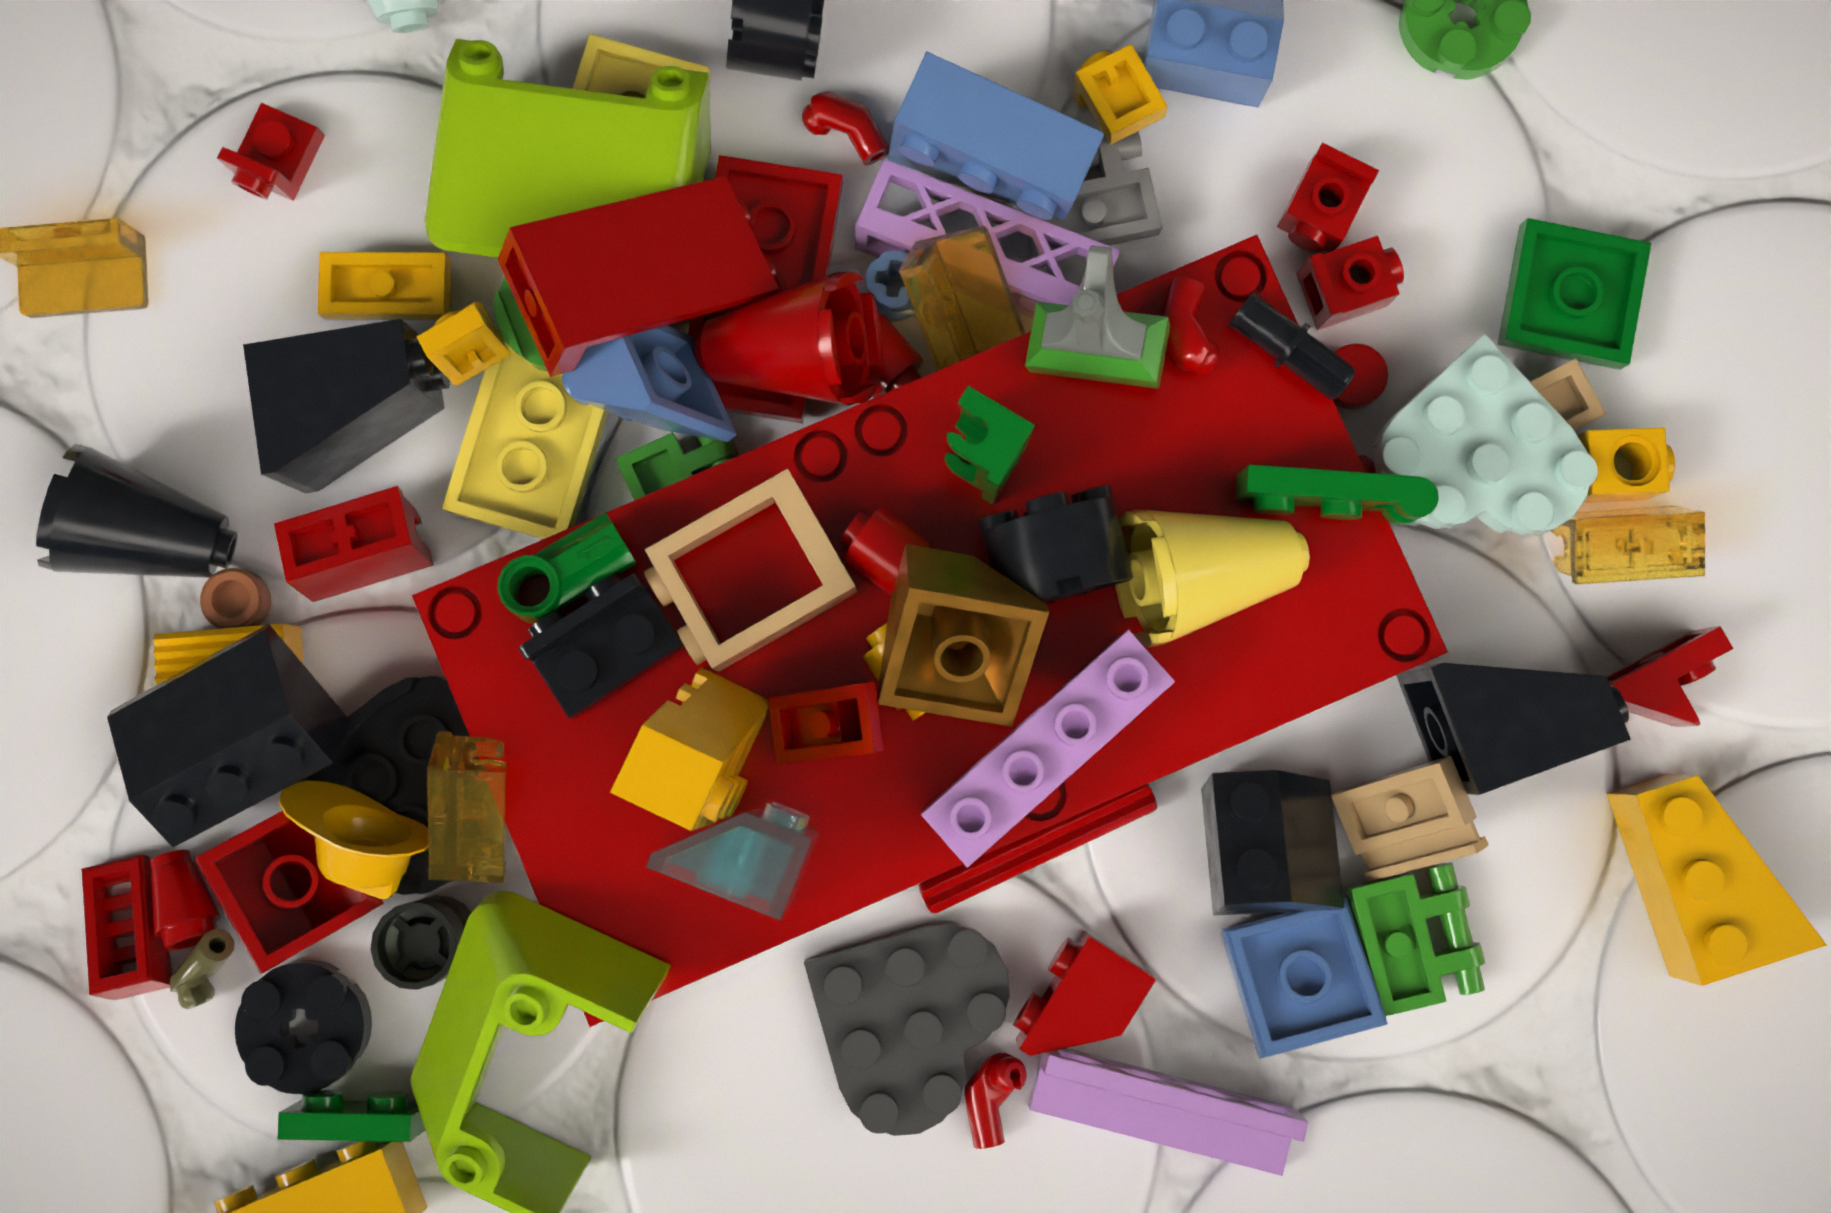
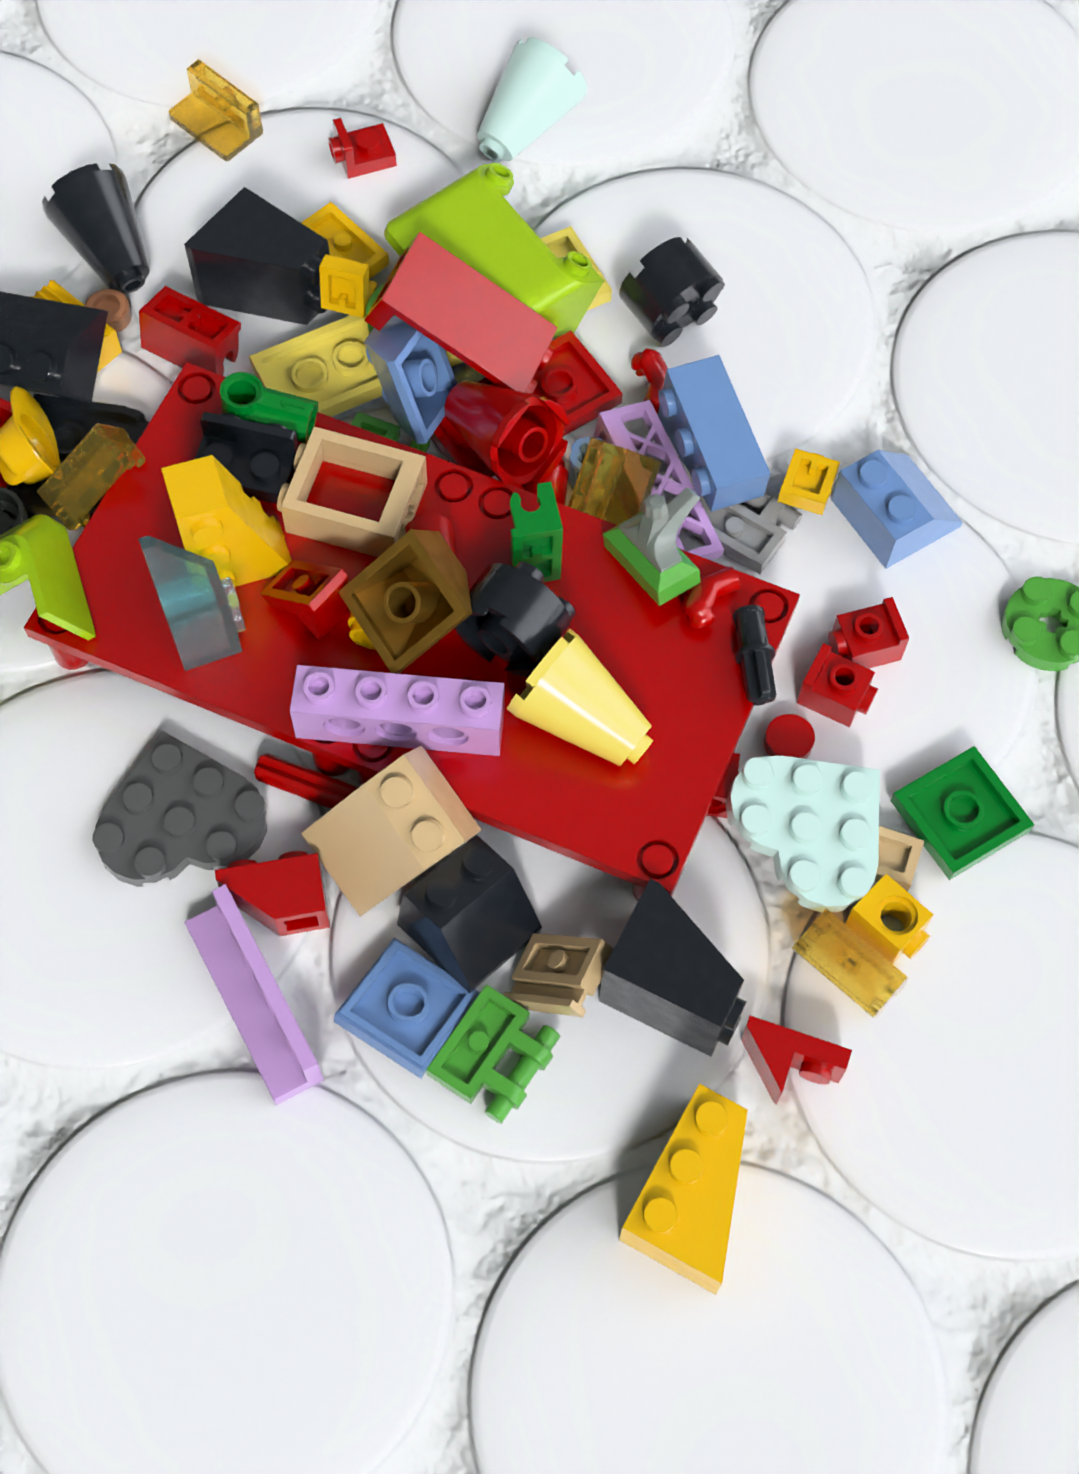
camera: 45 degrees right, 20 degrees down
(987, 1092) = (172, 893): red arm -> none
(1146, 848) = (390, 830): none -> tan slope
(1338, 493) = (695, 740): green plate -> none

